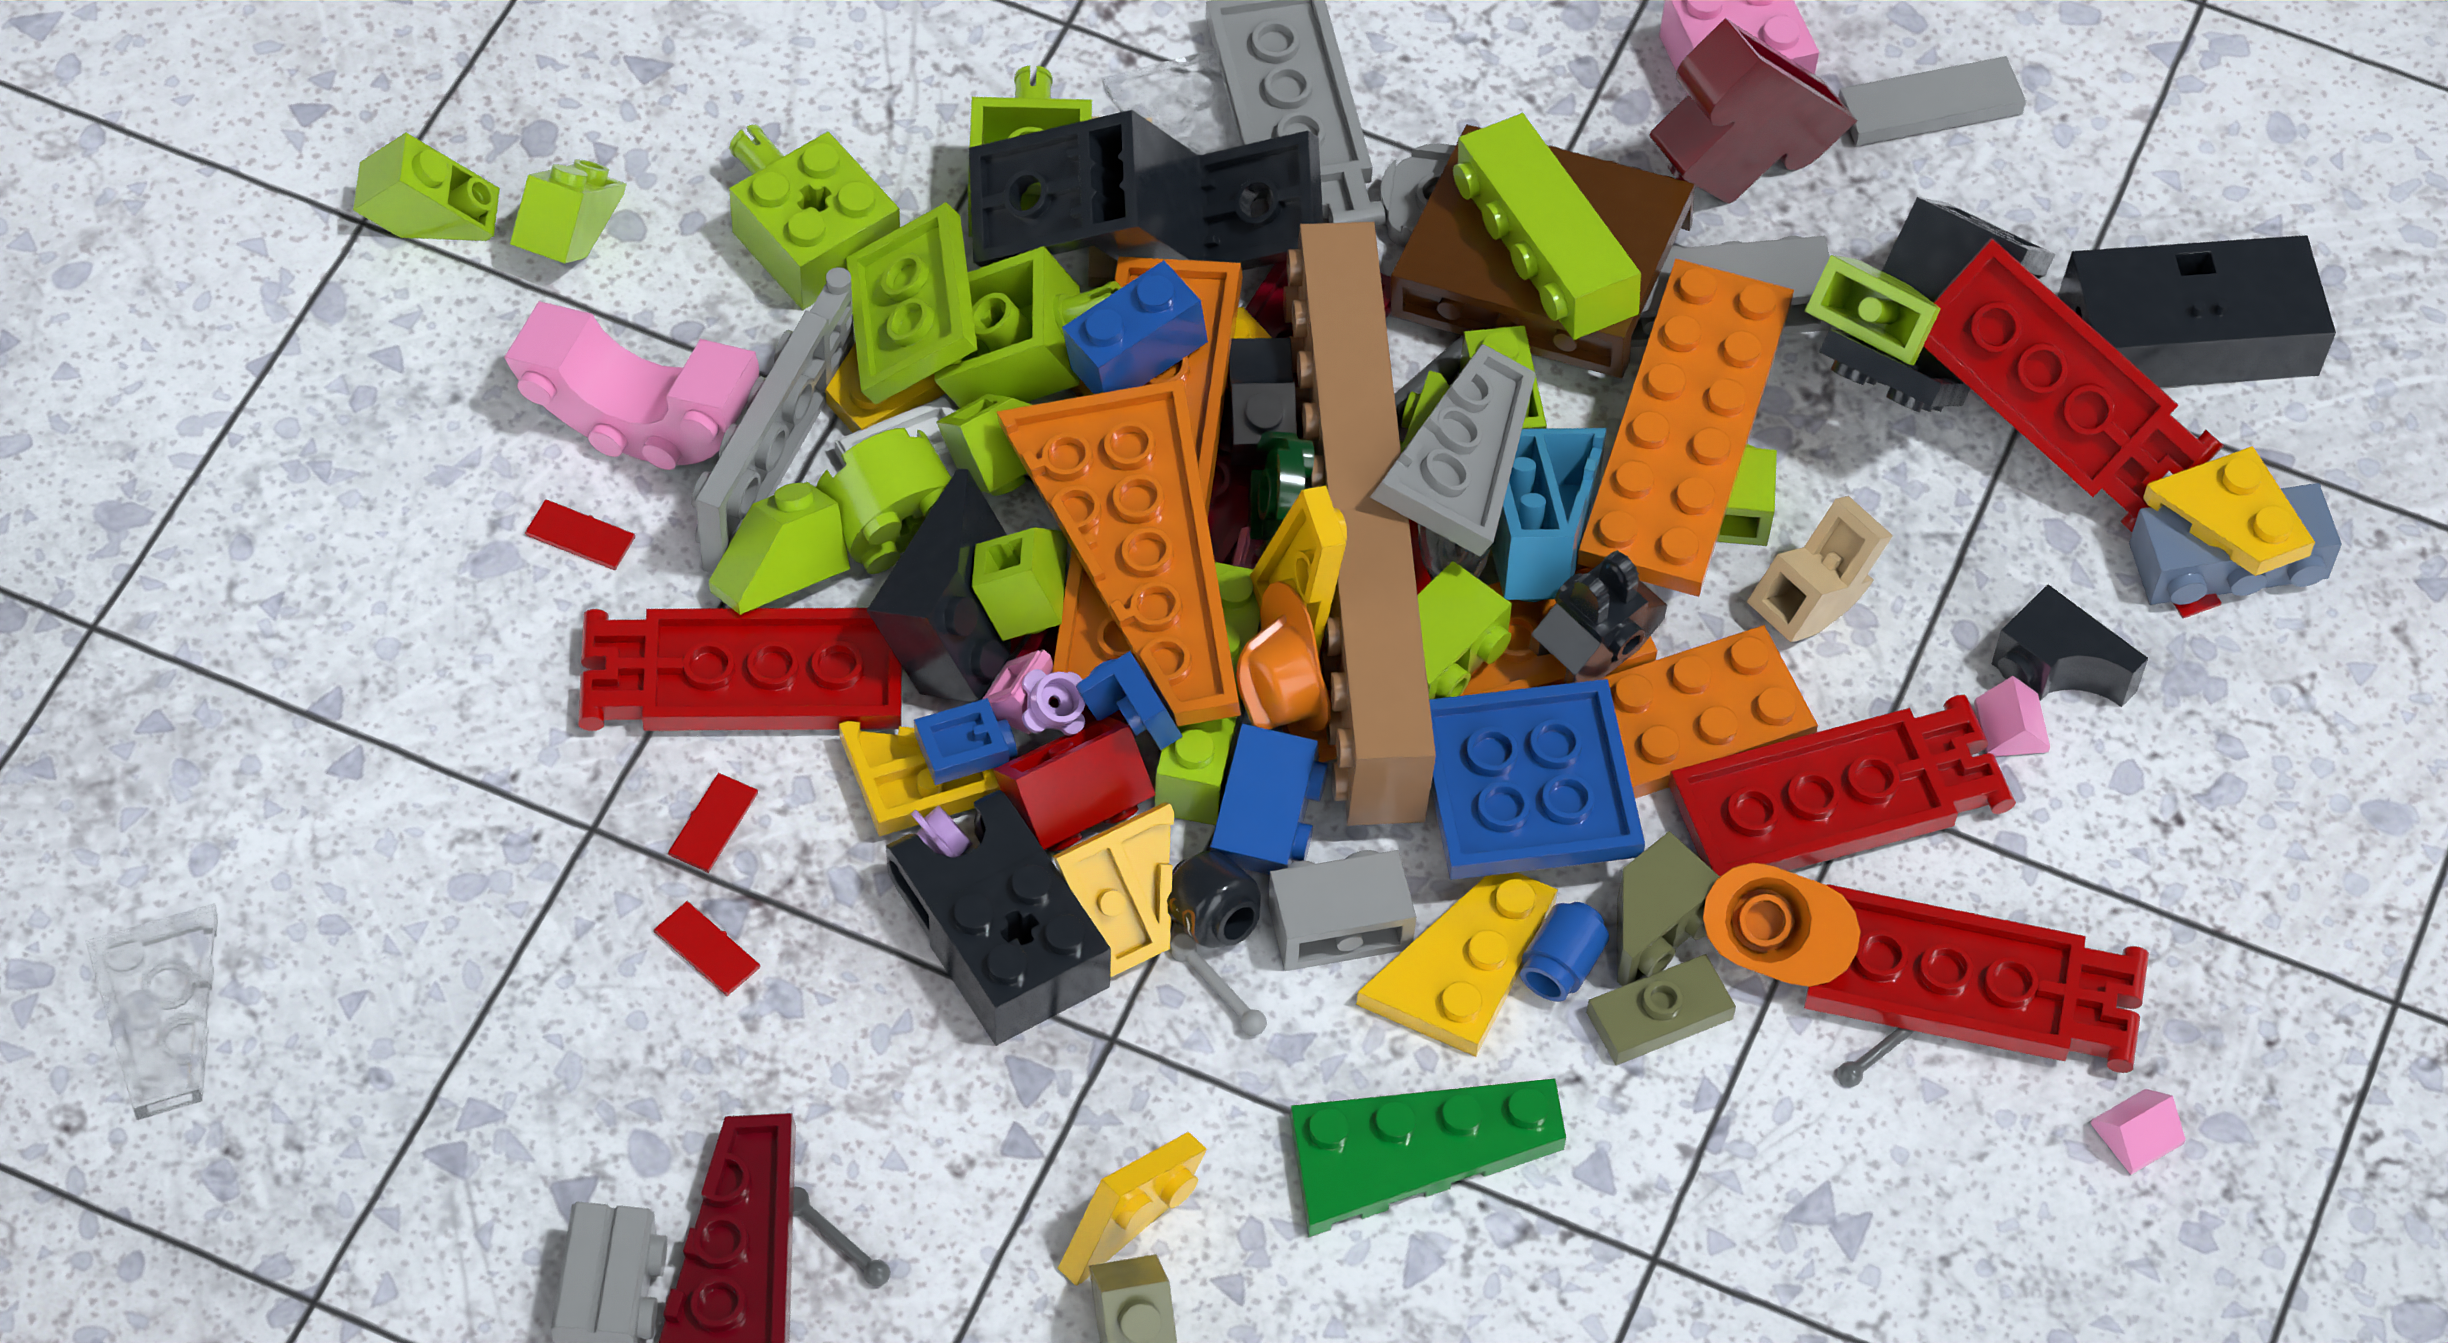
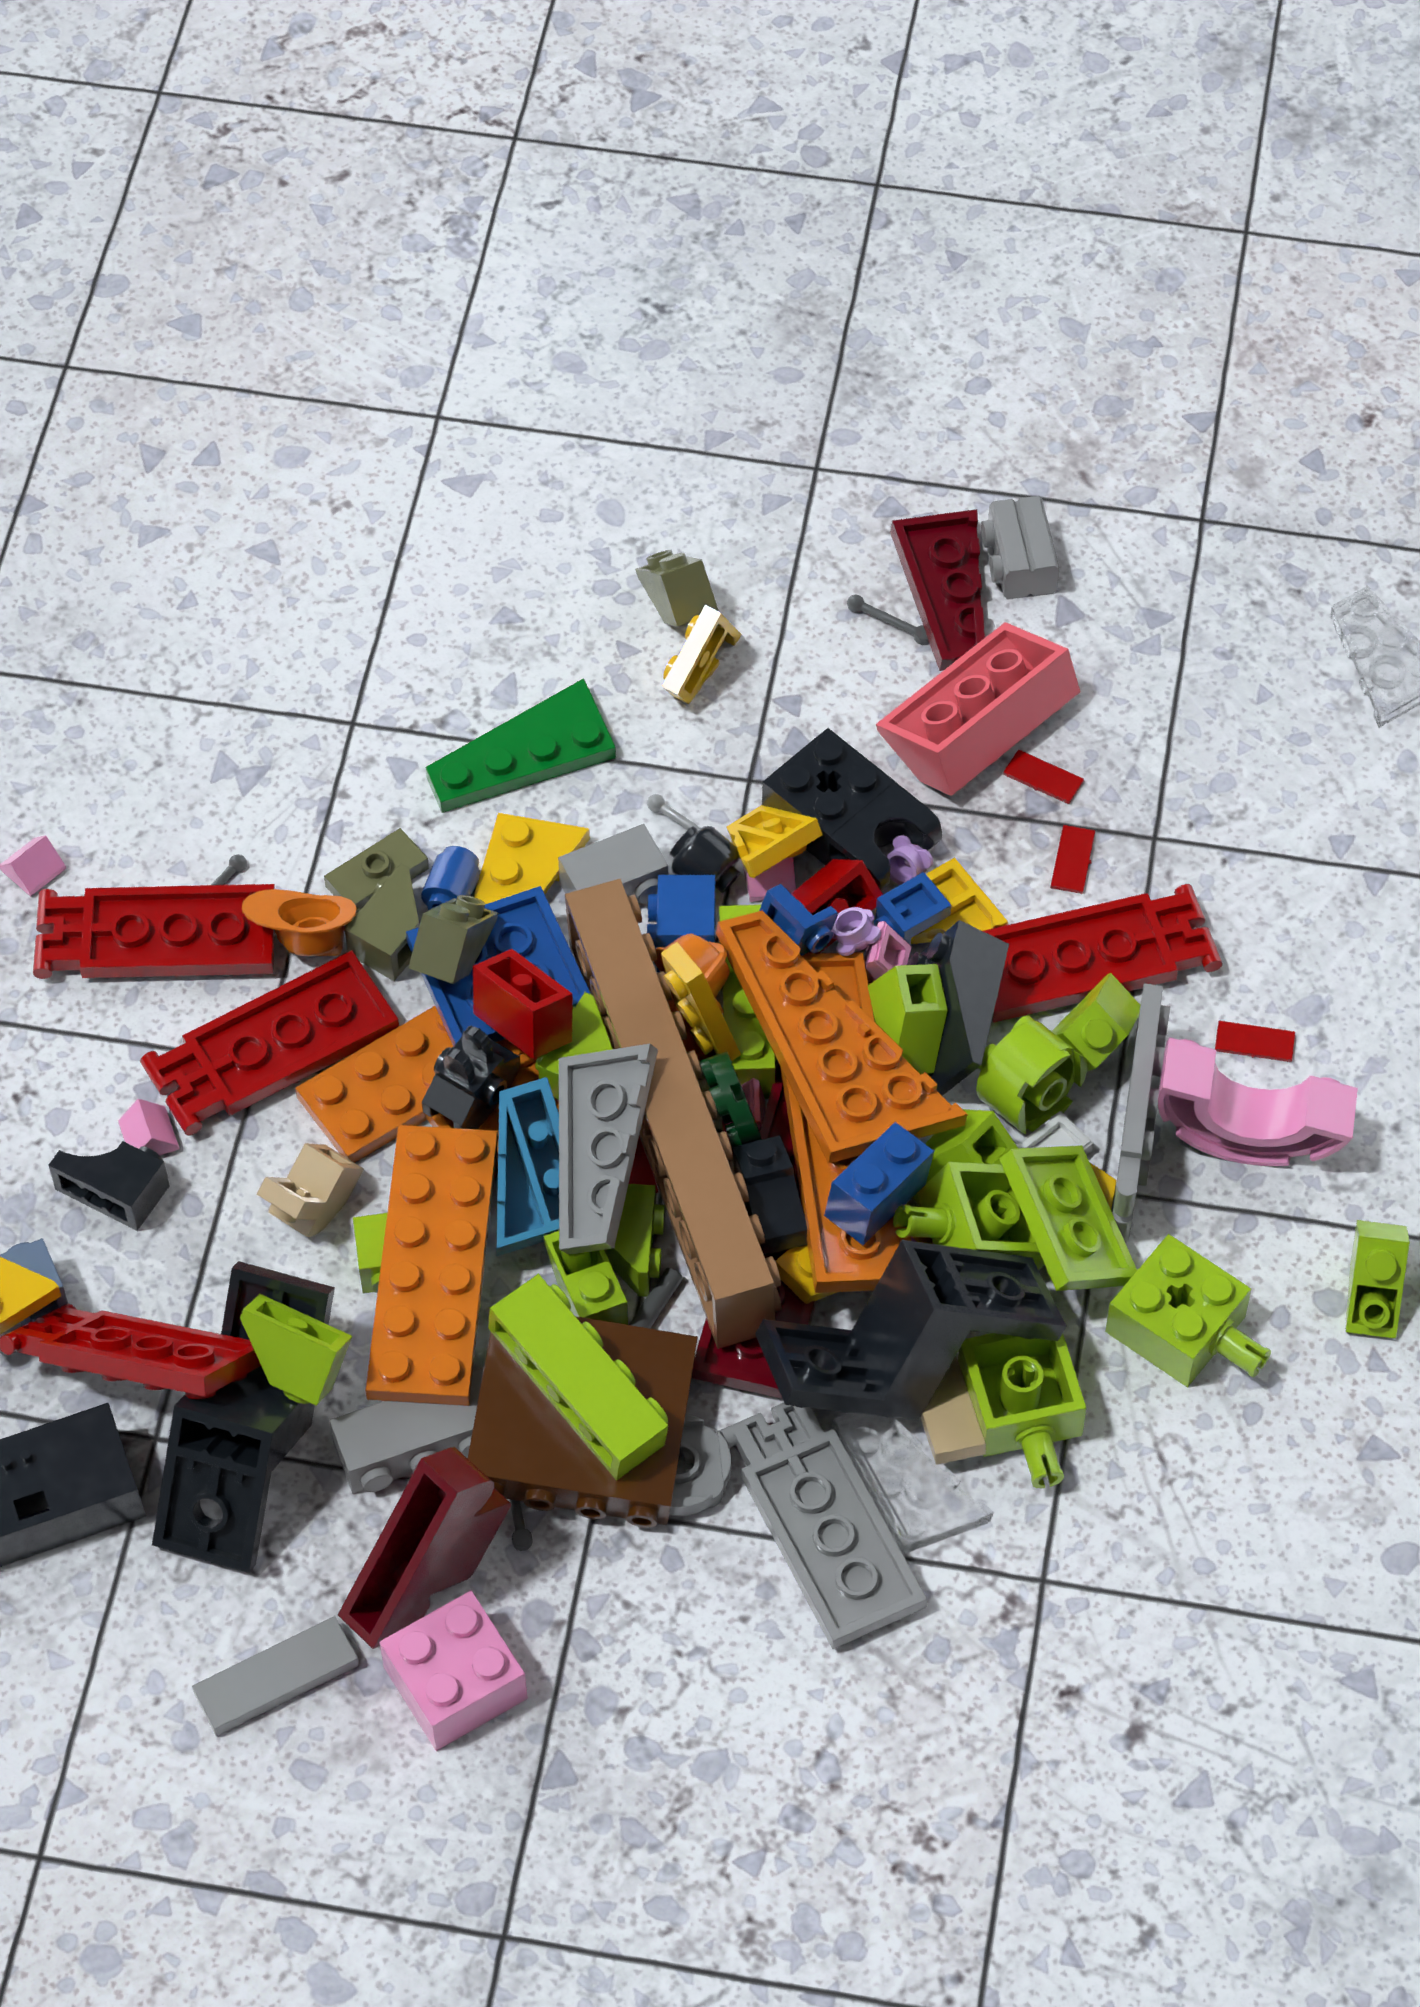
camera: 170 degrees right, 0 degrees up
(767, 1025) = (980, 707): none -> coral slope
(1520, 646) = (522, 1003): none -> red brick
(1586, 785) = (452, 938): none -> olive slope

